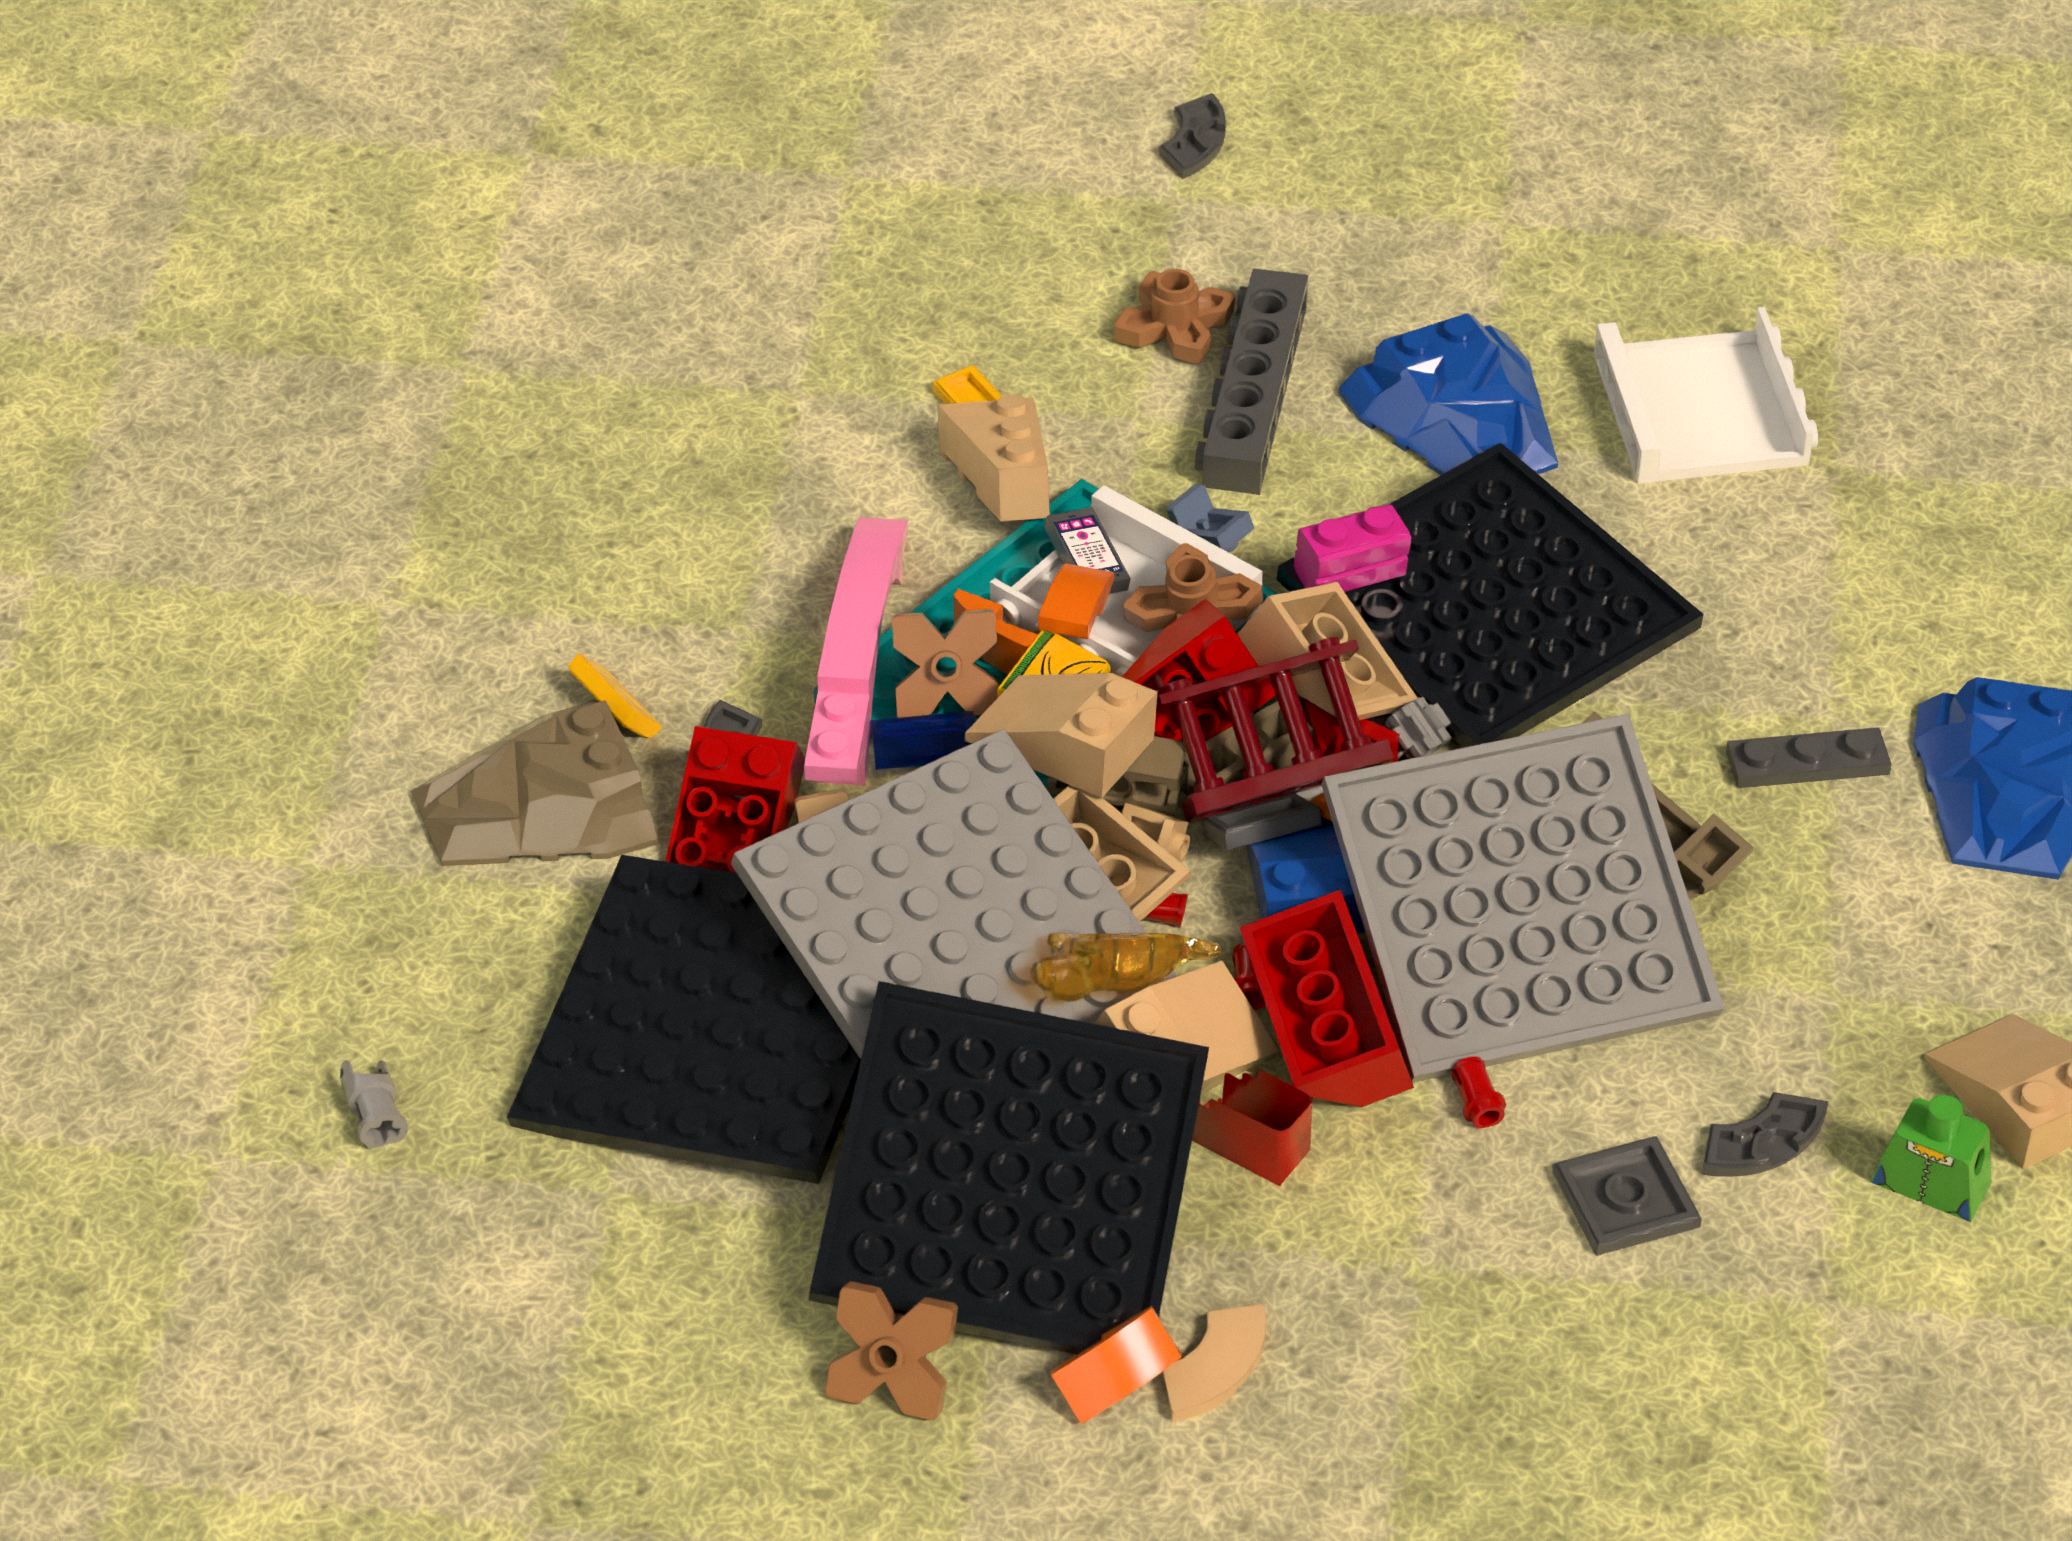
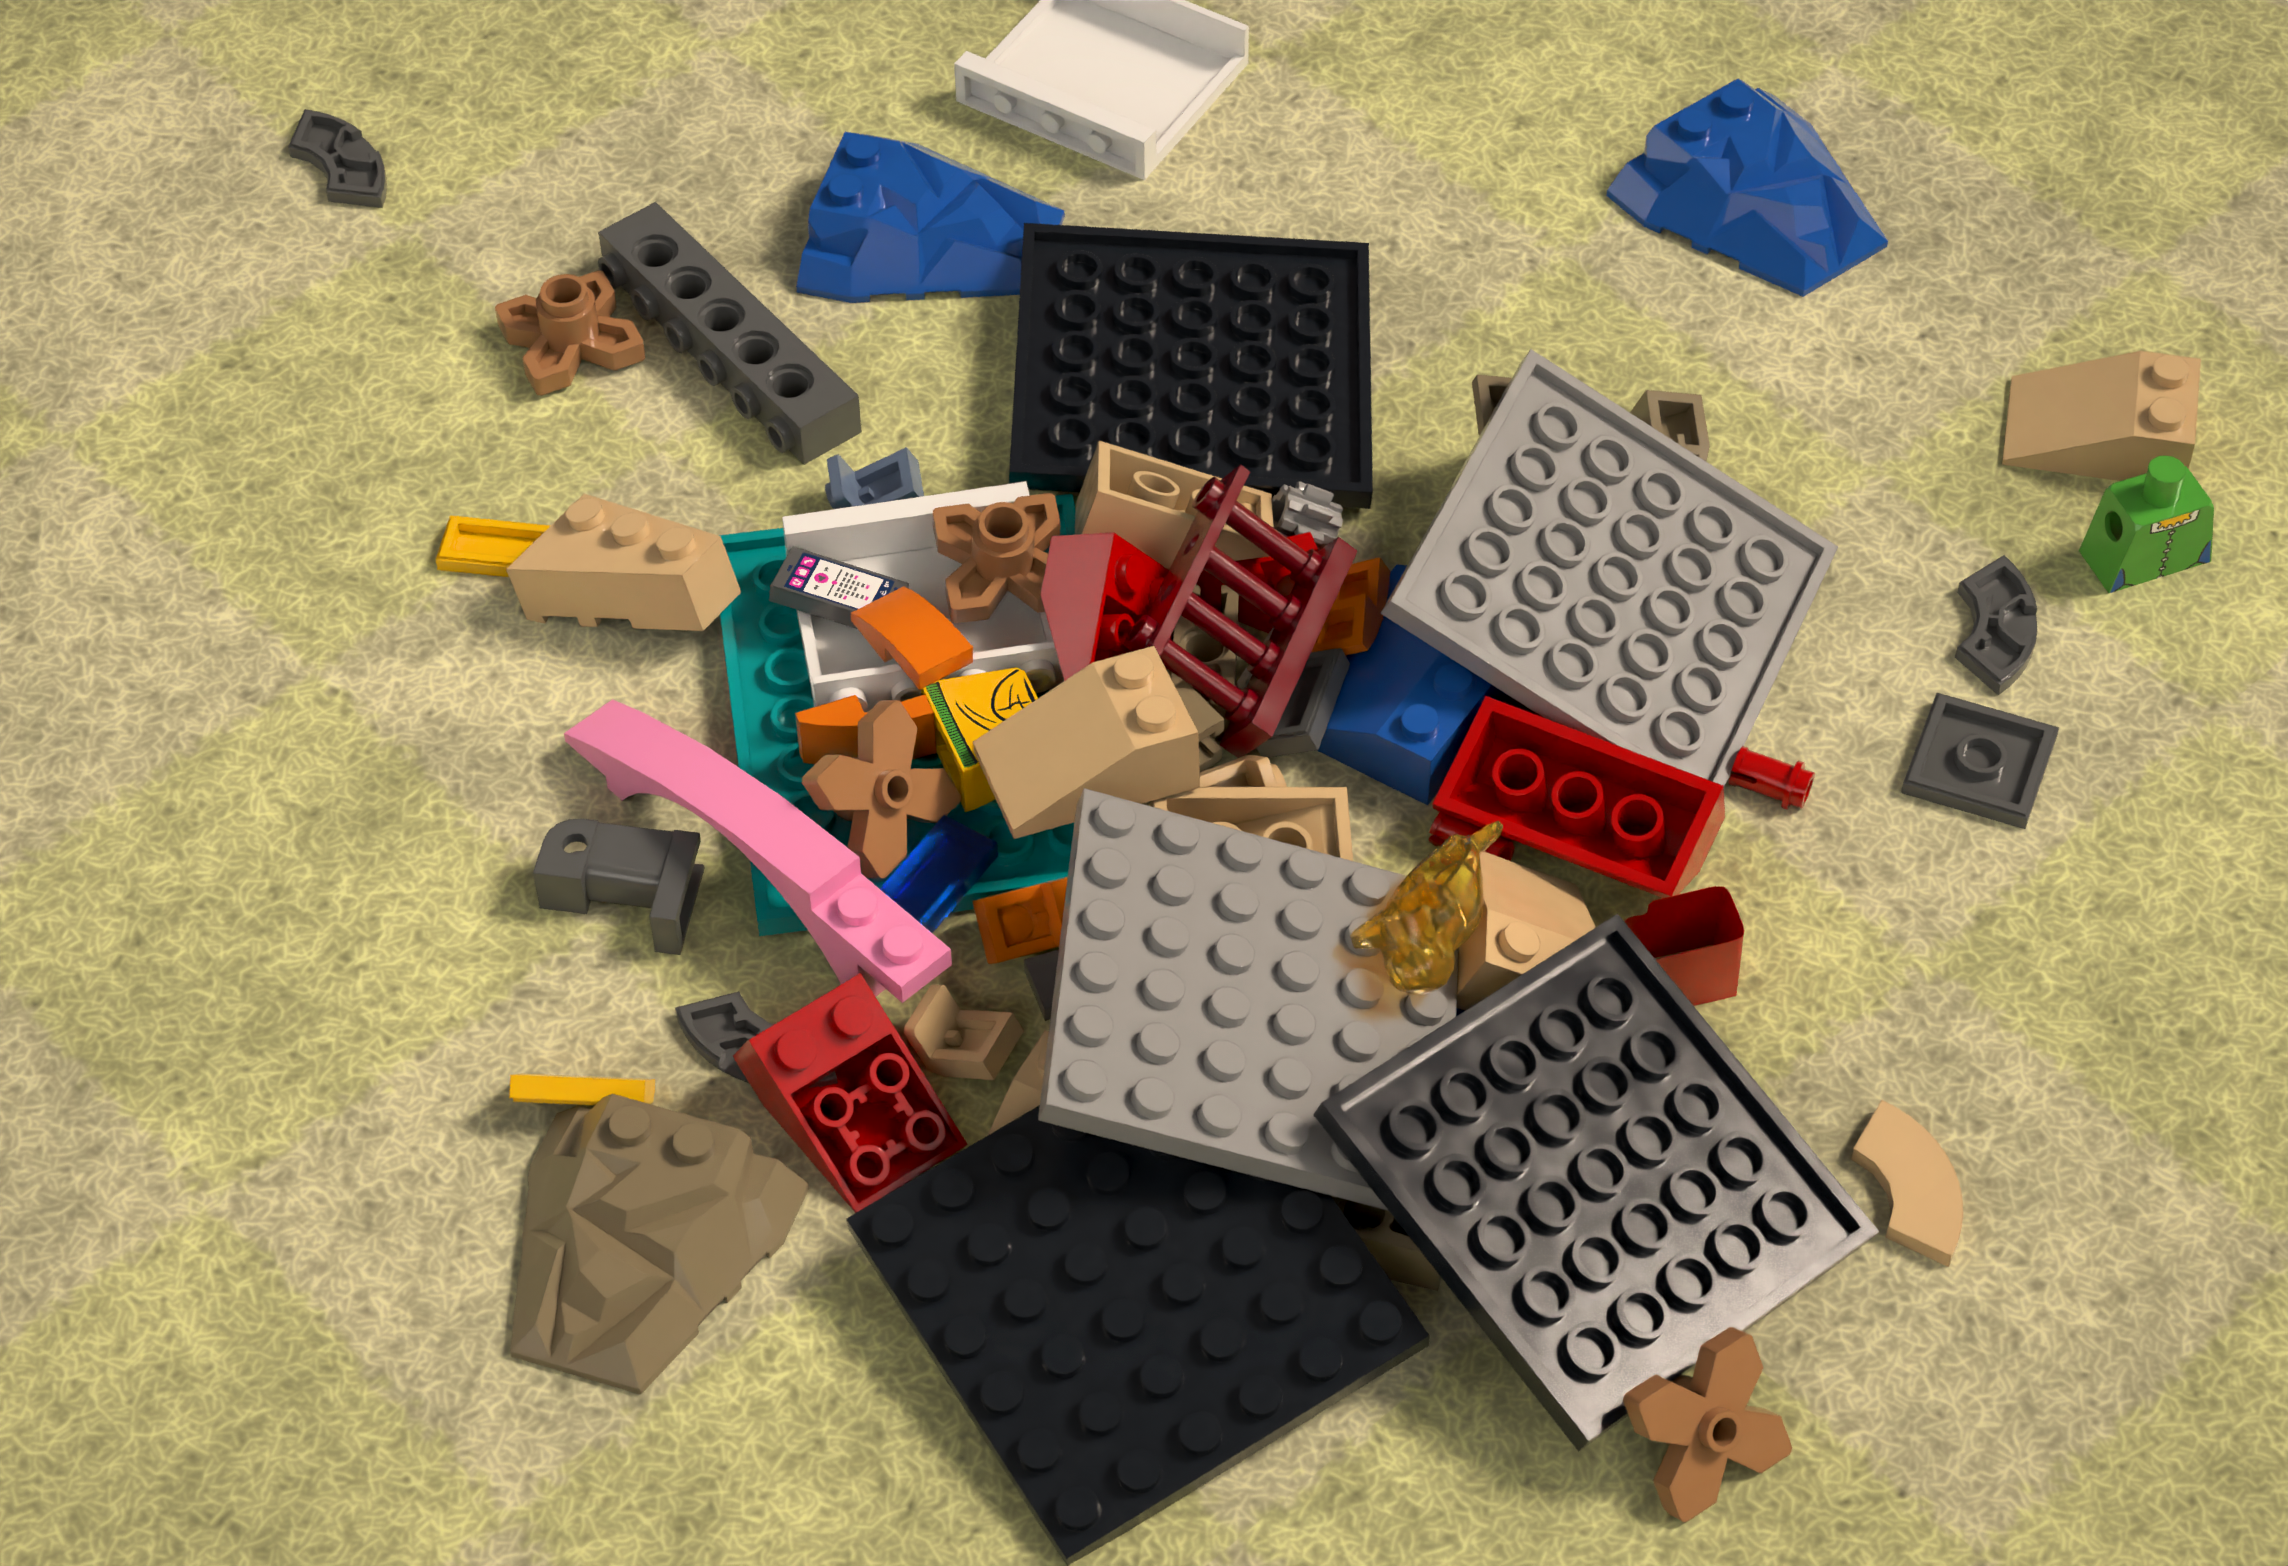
camera: 50 degrees left, 5 degrees up
(787, 605) = (625, 869): none -> dark grey piece
(1116, 1365) = (1879, 1260): orange slope -> none
(1353, 549) = (1072, 405): dark pink brick -> none
(1808, 757) = (1594, 298): dark grey plate -> none

